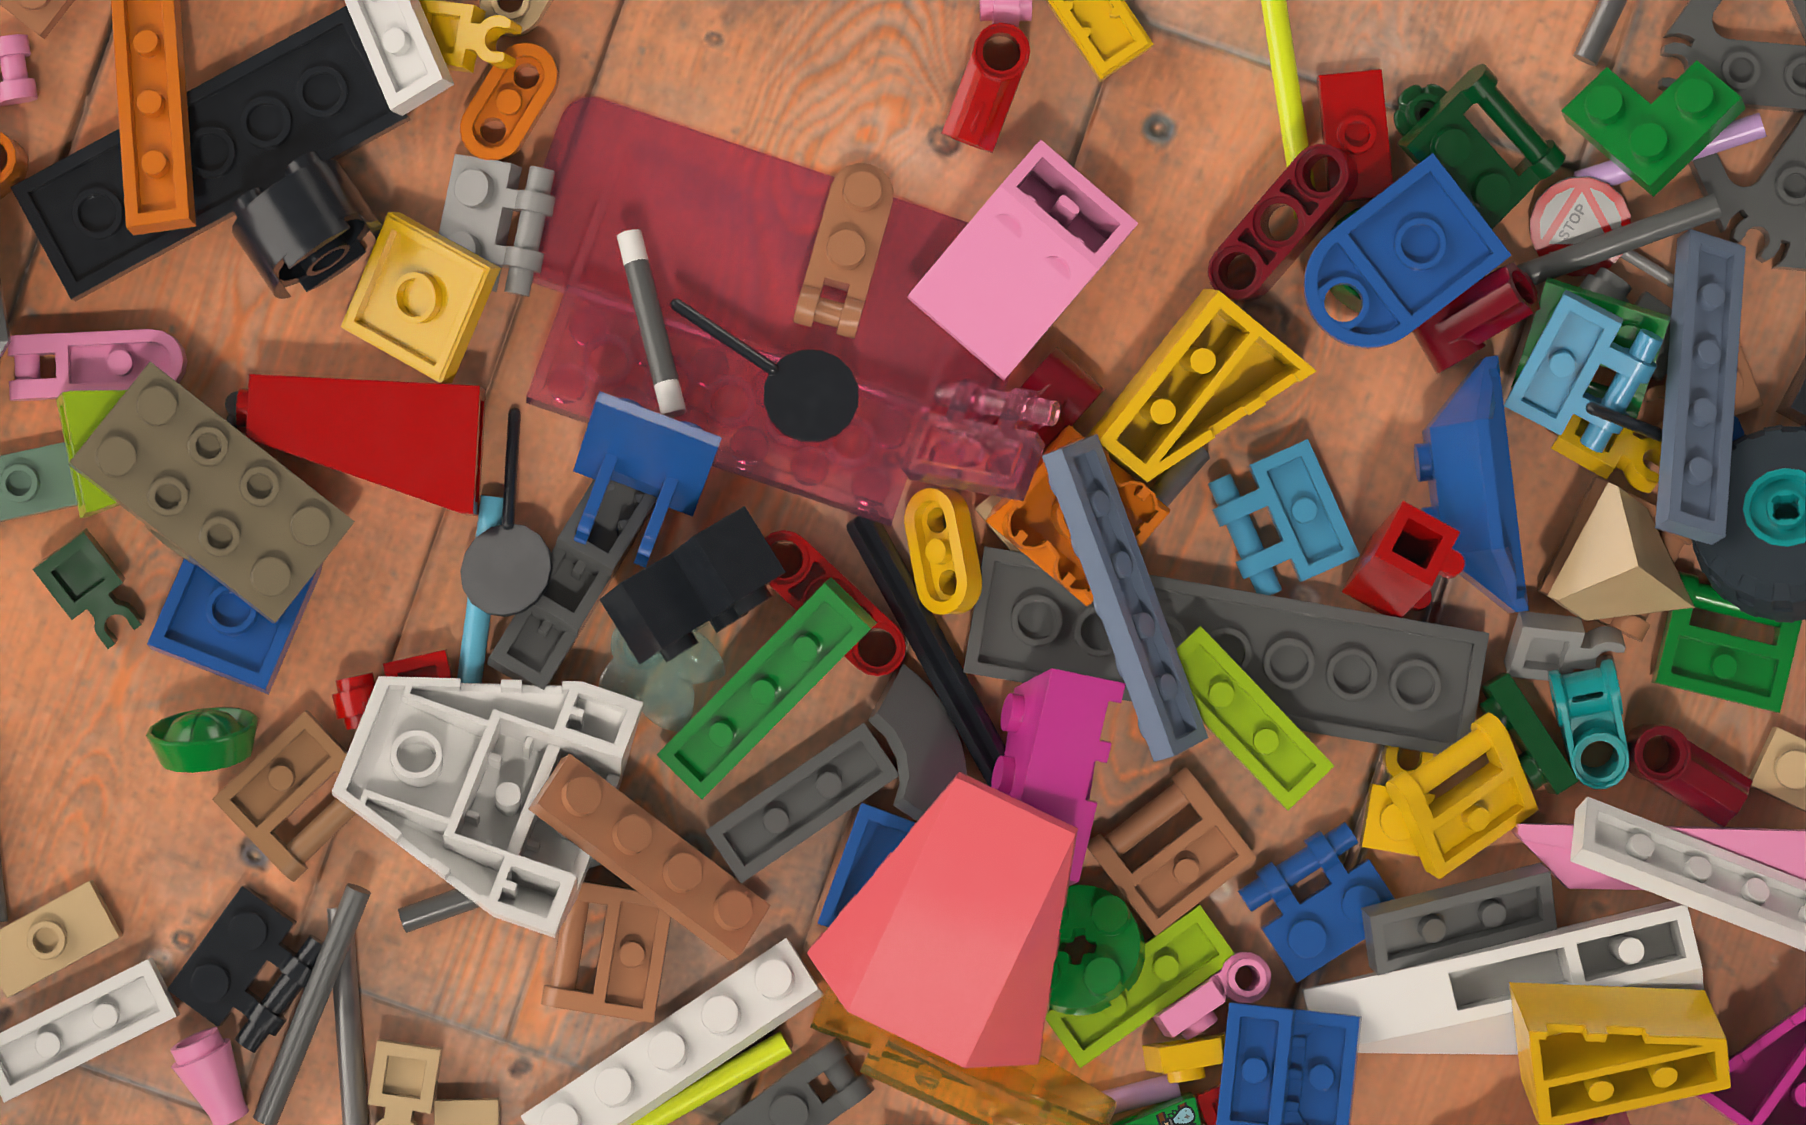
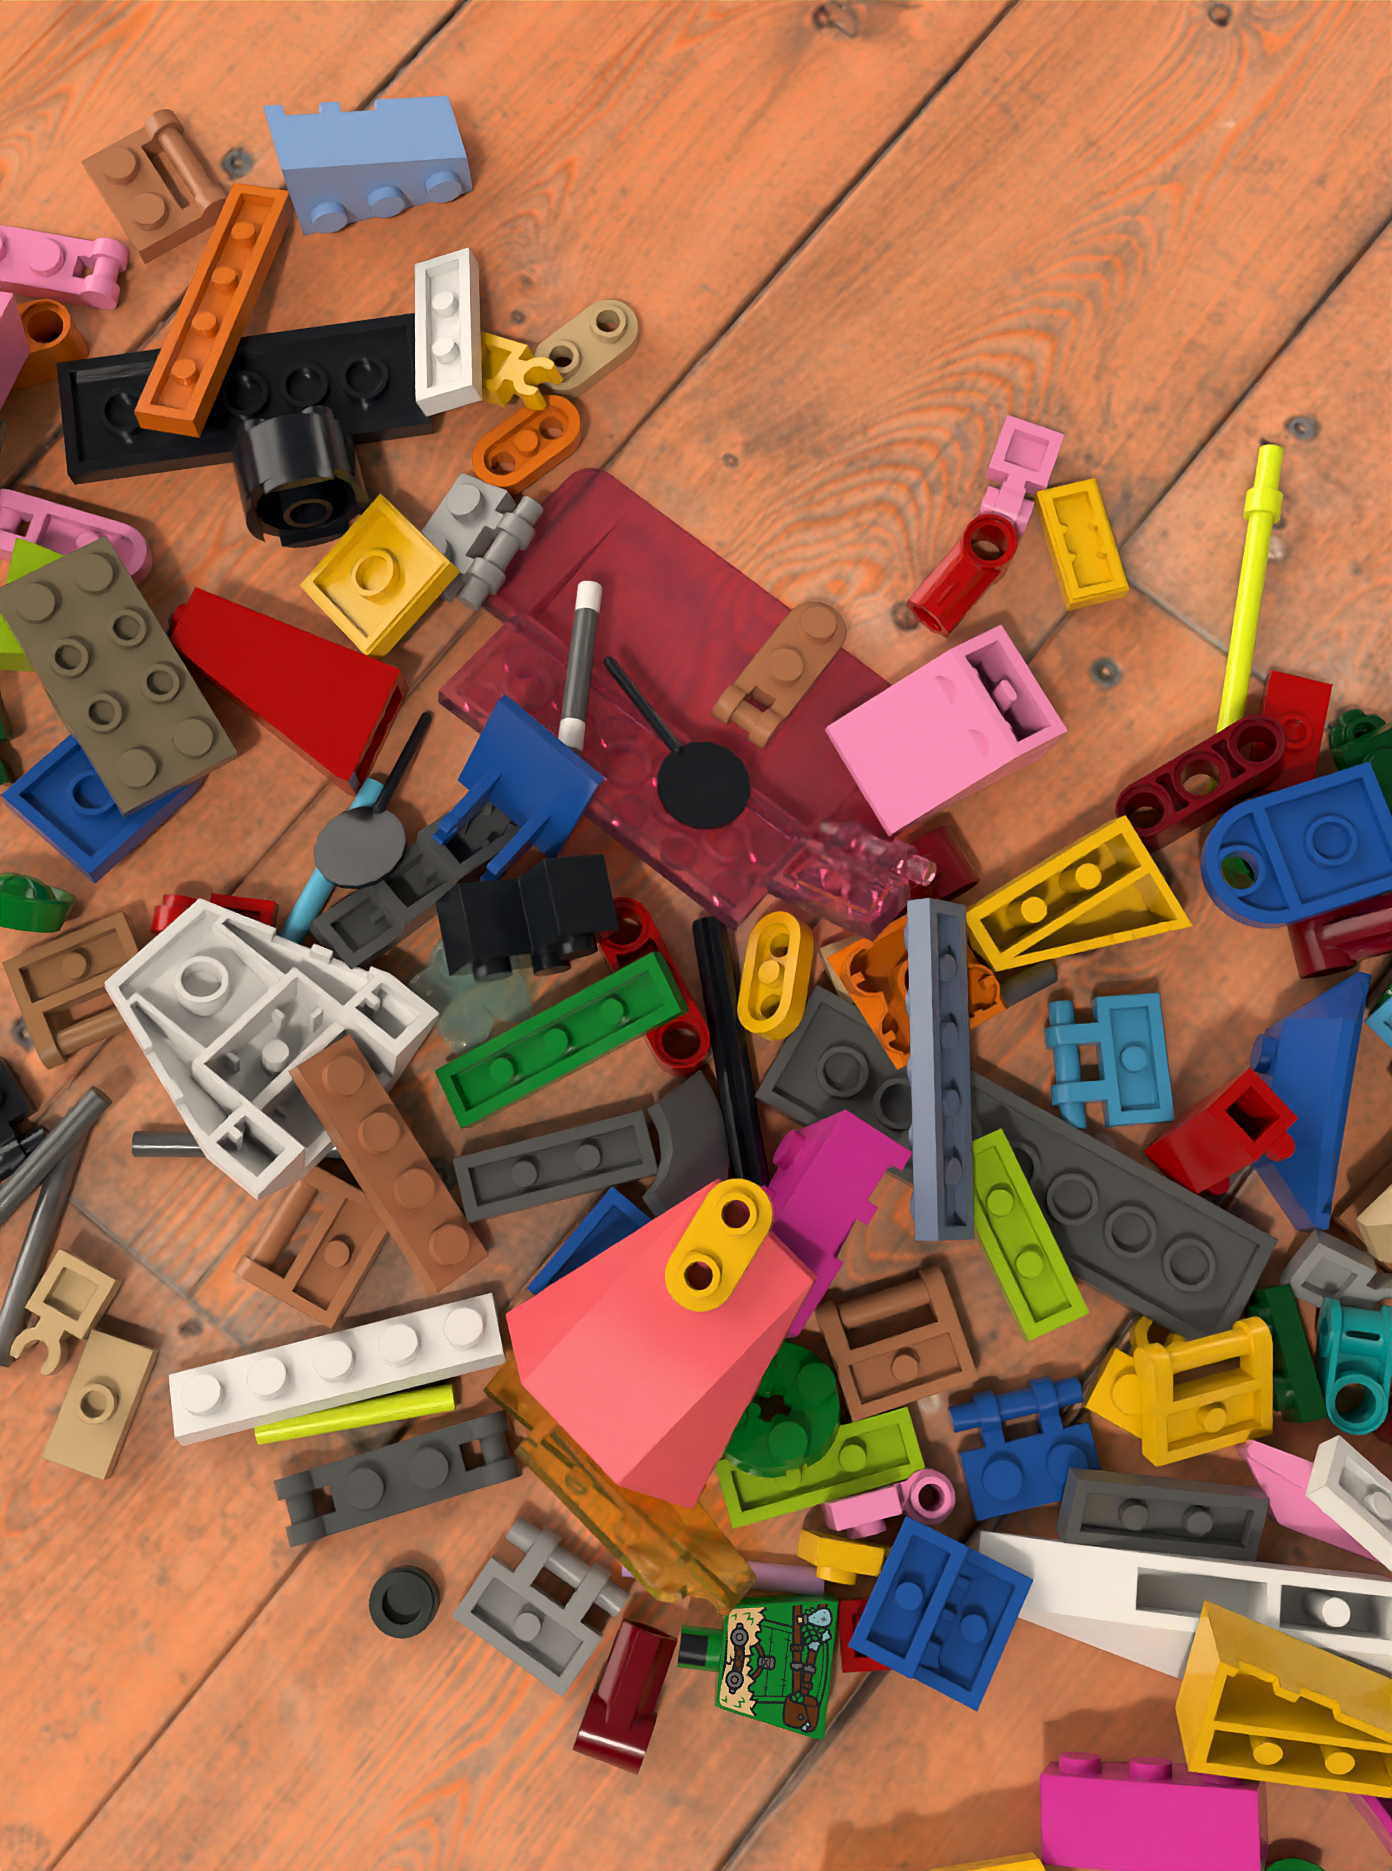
camera: 15 degrees right, 10 degrees down
(982, 833) = (720, 1246): none -> yellow plate

